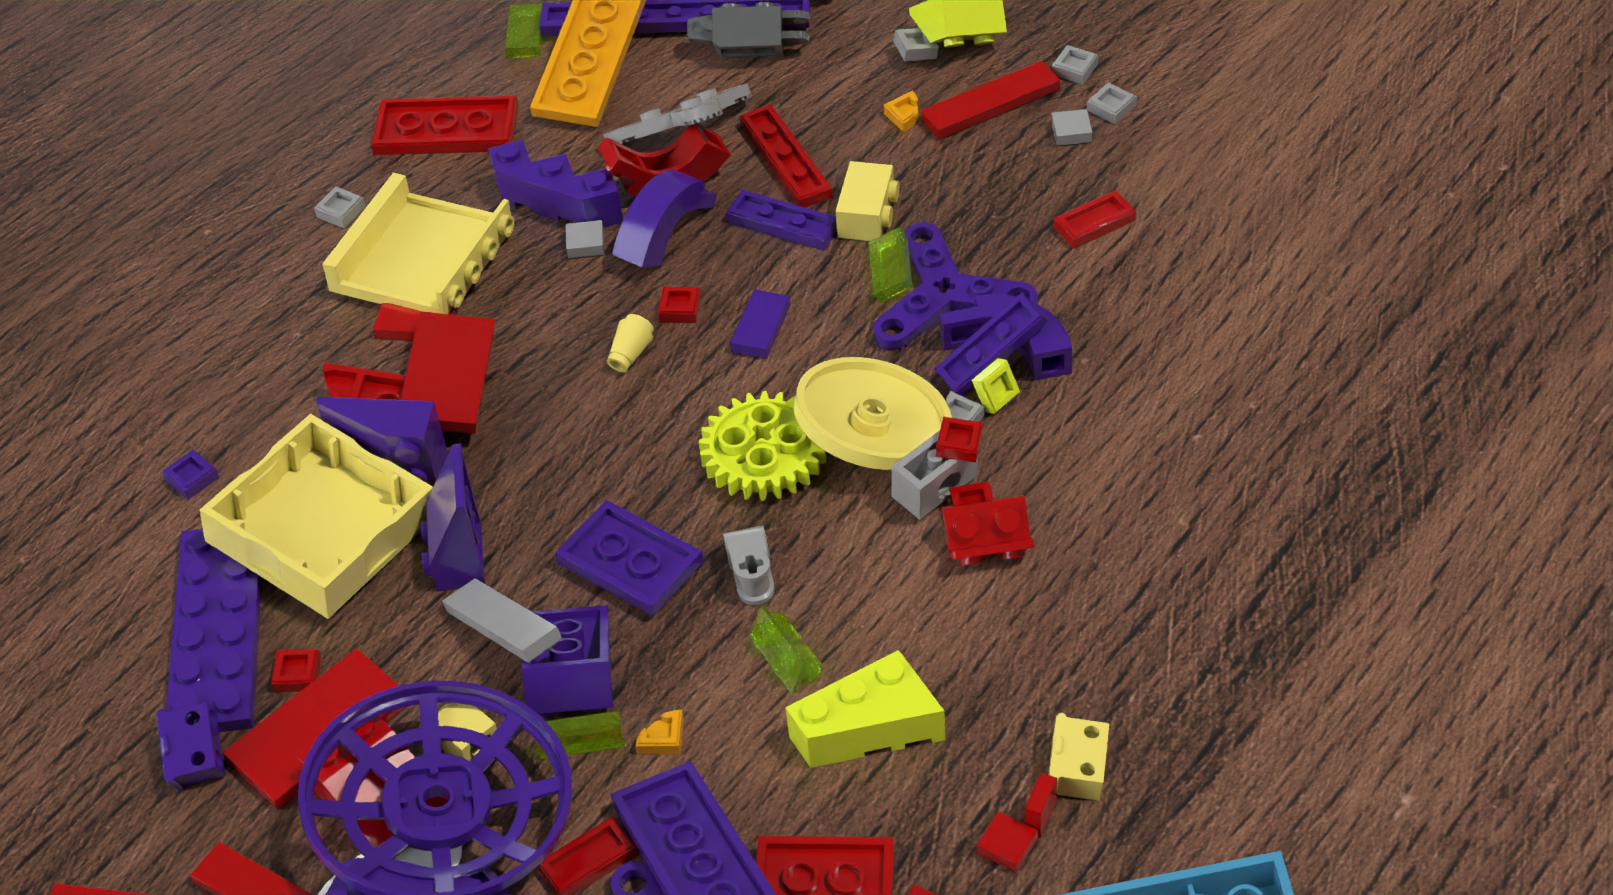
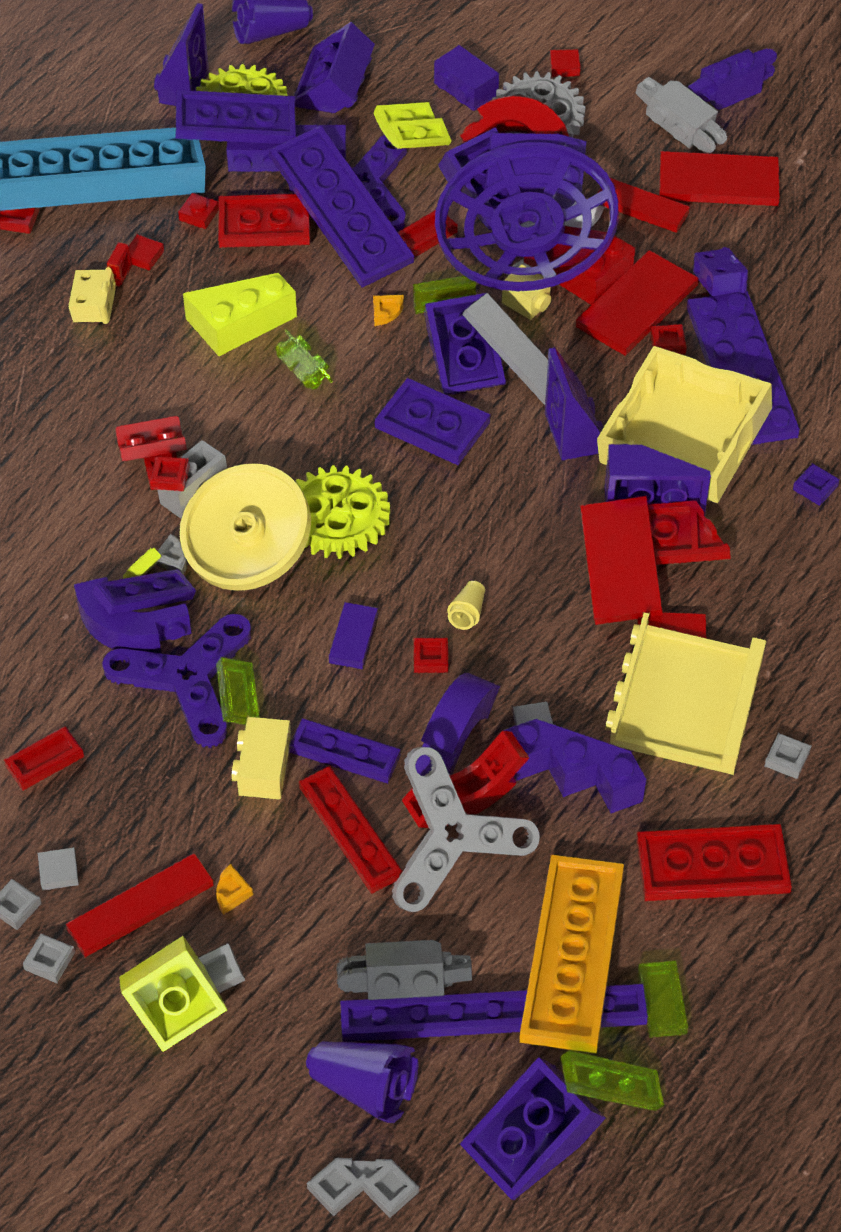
camera: 170 degrees right, 5 degrees up
(750, 562) = (336, 415): light grey piece -> none

